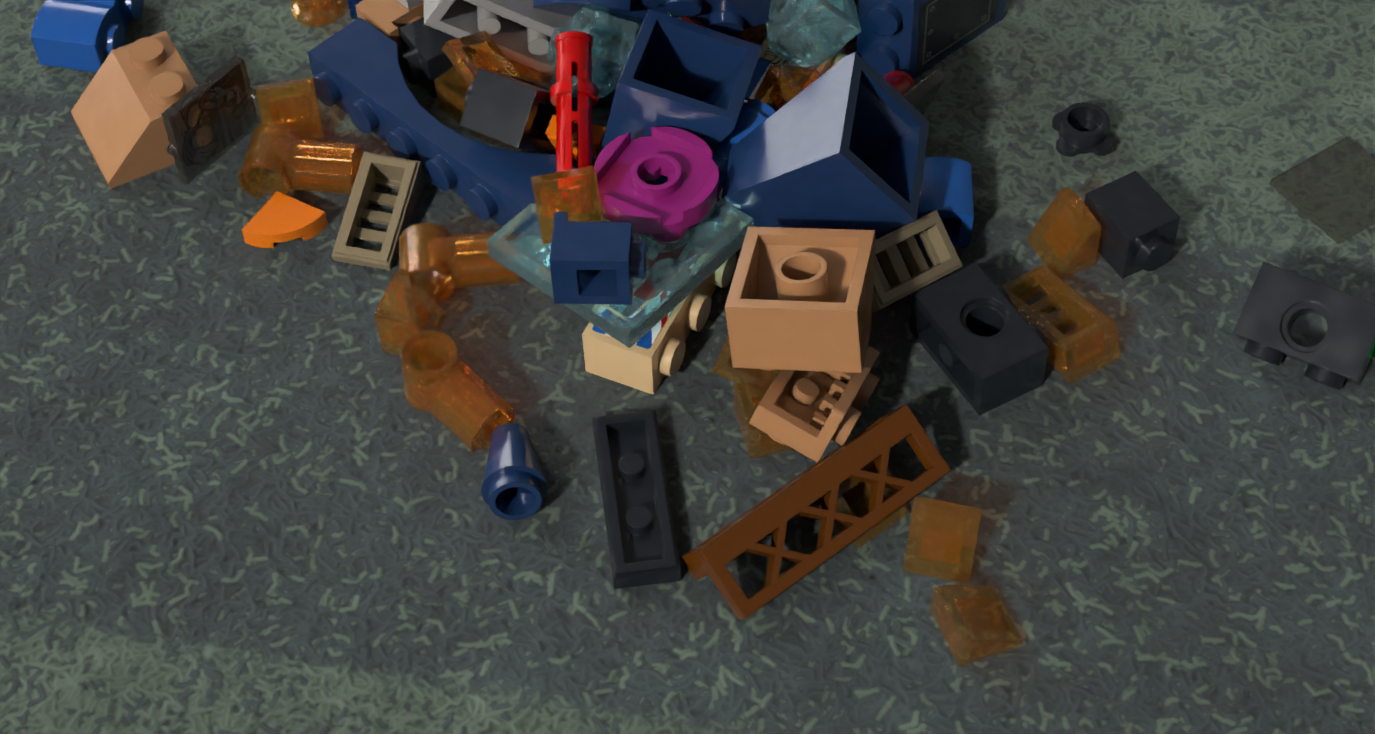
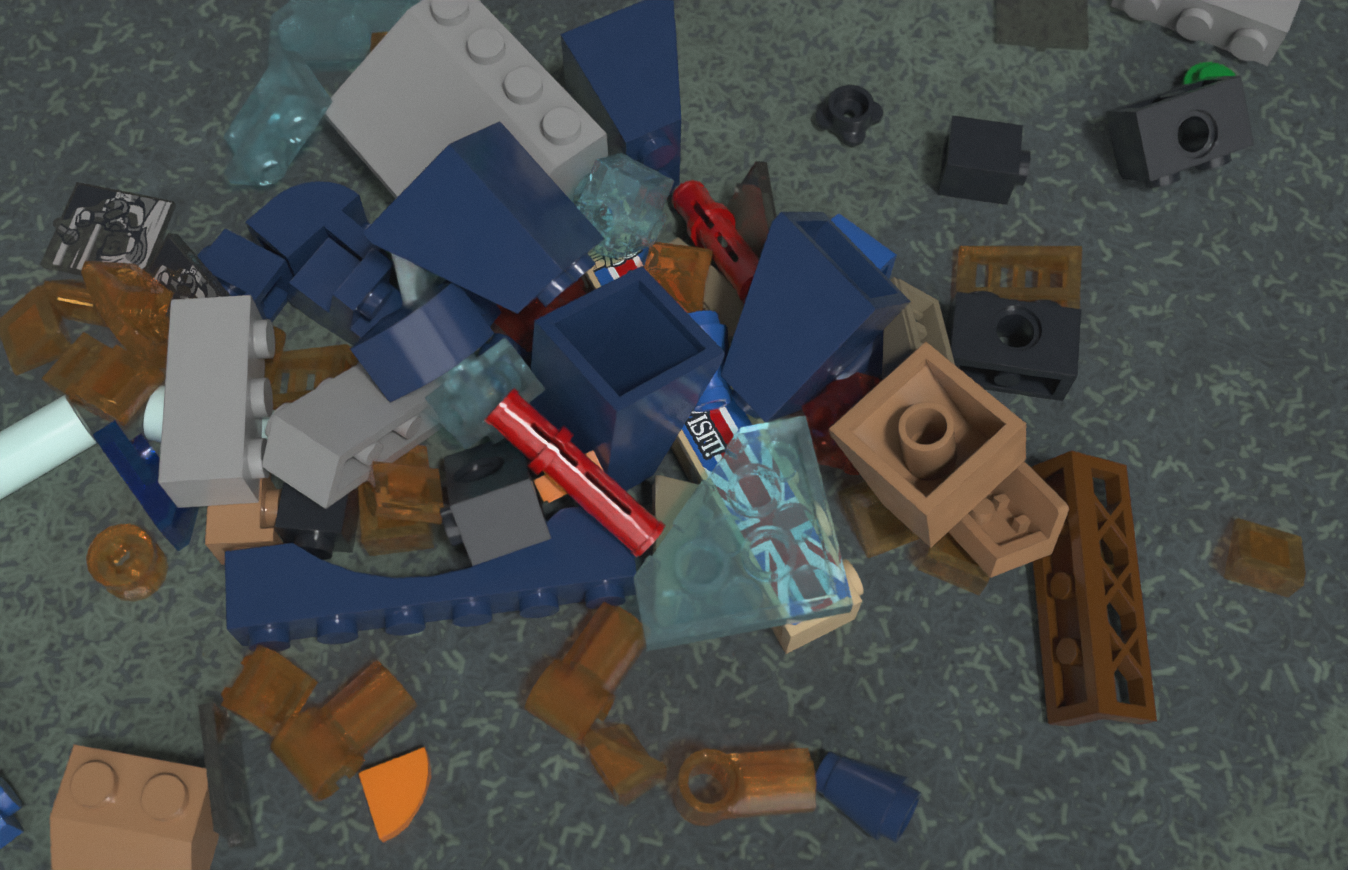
camera: 55 degrees left, 15 degrees up
(384, 172) = (429, 655): dark tan slope -> none
(566, 191) = (689, 551): clear orange tile -> none
(595, 261) = (775, 577): dark blue brick -> none
(636, 500) = (961, 714): black tile -> none
(663, 208) = (701, 495): magenta plate -> none
(942, 539) = (1182, 522): clear orange slope -> none
(1066, 235) = (951, 207): clear orange slope -> none

